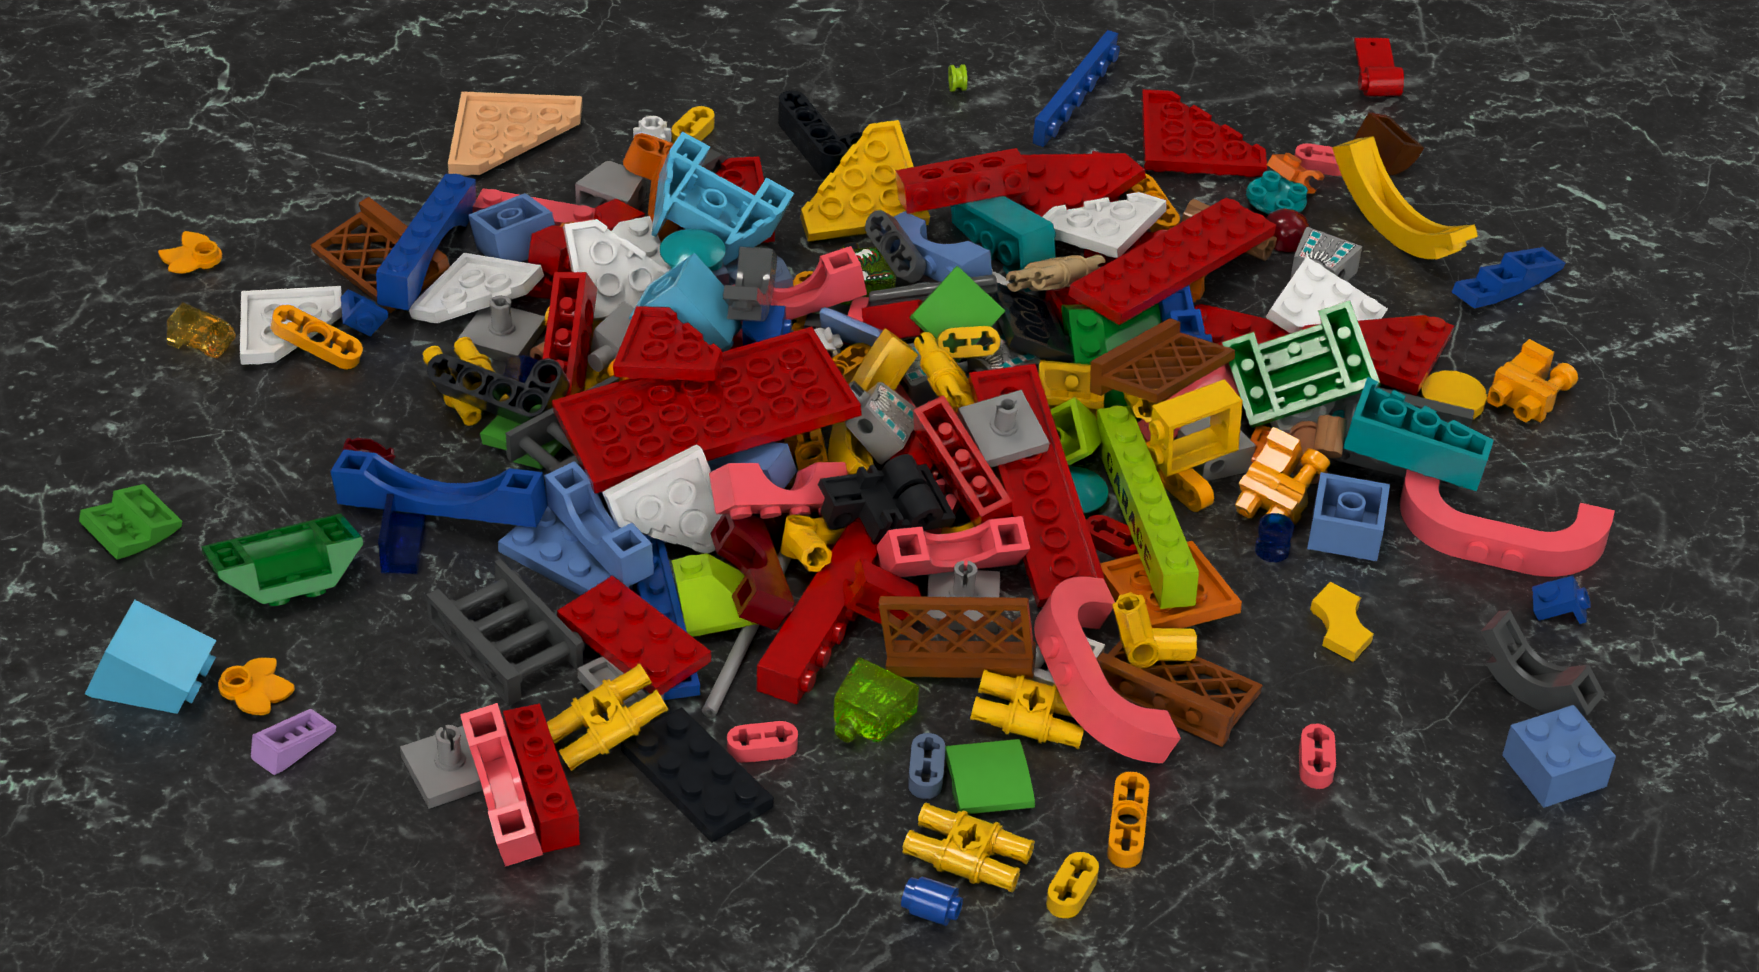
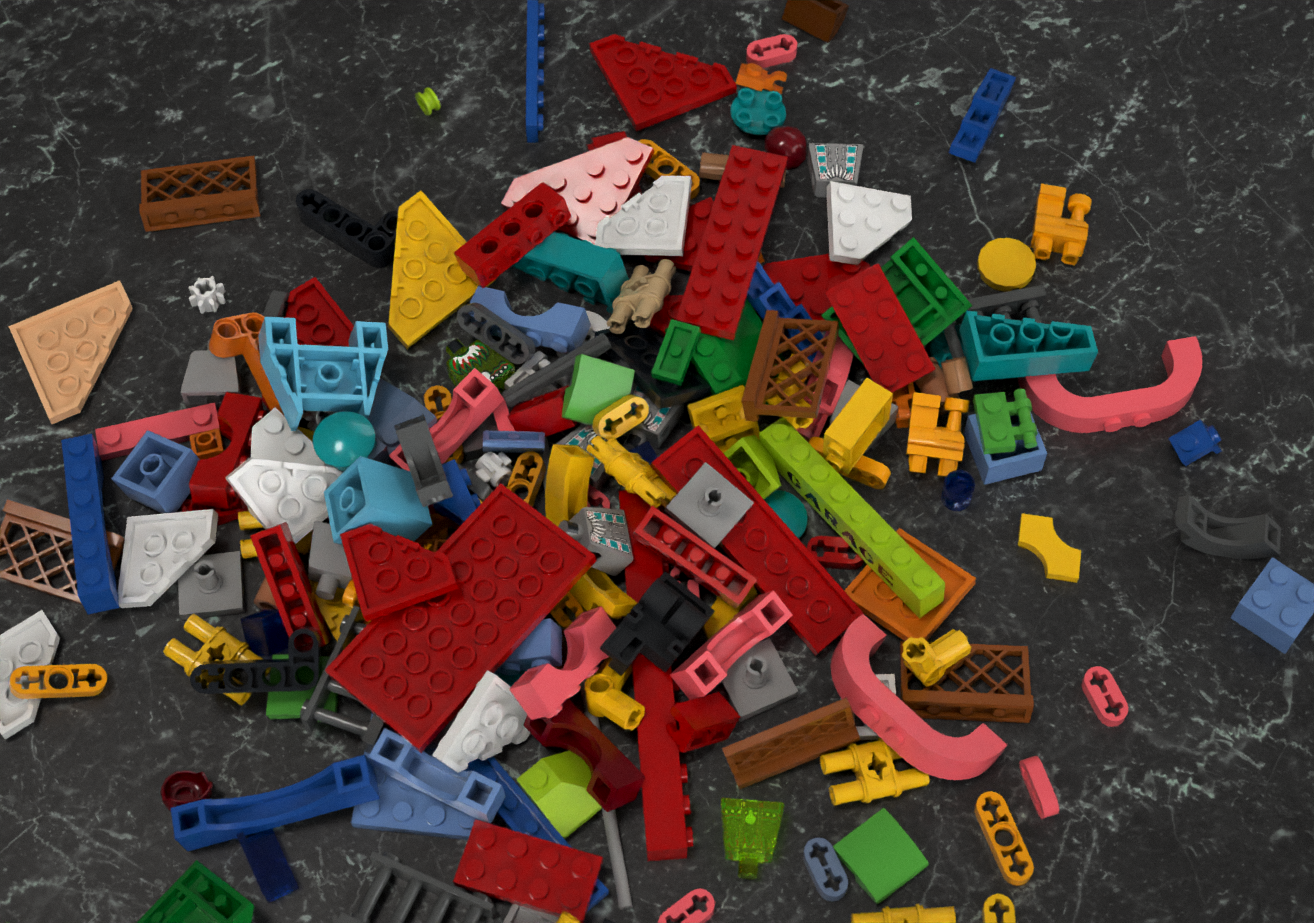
camera: 25 degrees left, 20 degrees up
(361, 313) = (78, 631): blue bracket -> none
(696, 122) = (241, 265): yellow beam -> none
(698, 73) = (201, 208): none -> dark orange fence
(1053, 308) = (676, 352): none -> green plate
(1193, 792) = (1039, 787): none -> coral beam
(1273, 373) = (880, 329): none -> red plate
(1343, 484) = (995, 424): none -> bright green plate
(1388, 210) = (860, 90): yellow arch -> none
(1404, 348) = (946, 232): red plate -> none

